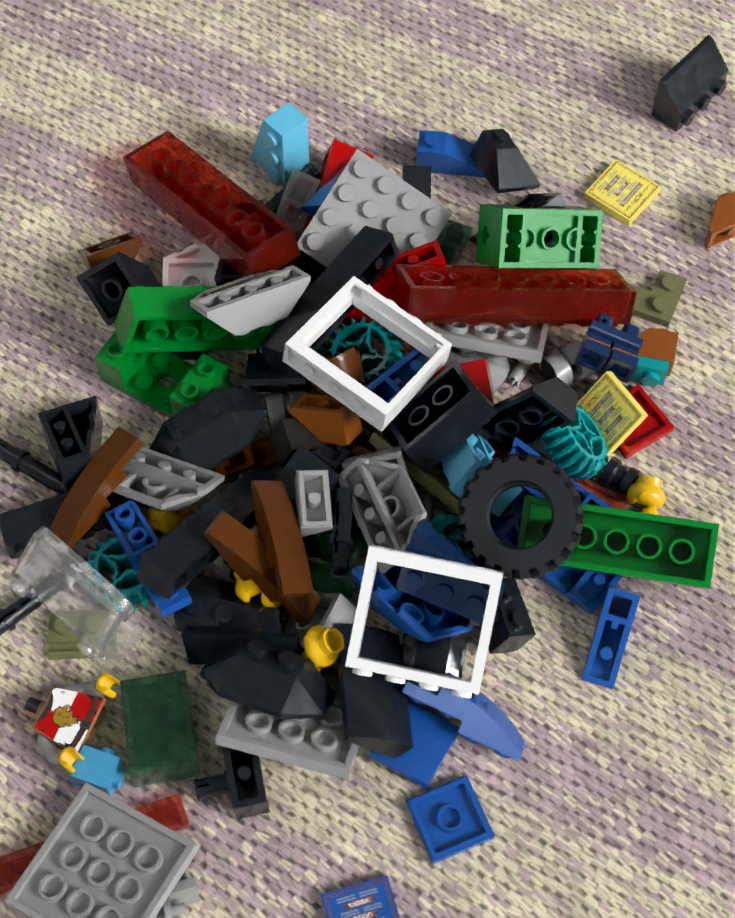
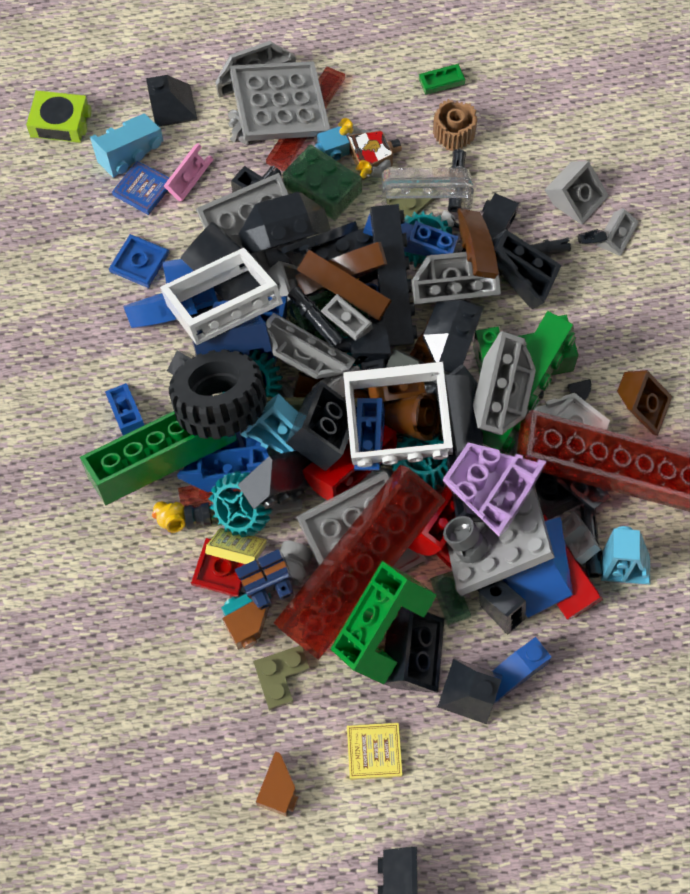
camera: 140 degrees right, 5 degrees up
(109, 281) = (606, 379): black slope -> none
(293, 885) = (187, 173): none -> bright pink hinge
(322, 645) = (271, 260): yellow animal -> none
(350, 231) = (493, 483): none -> lavender wedge
(410, 228) = (465, 539): none -> dark grey wheel

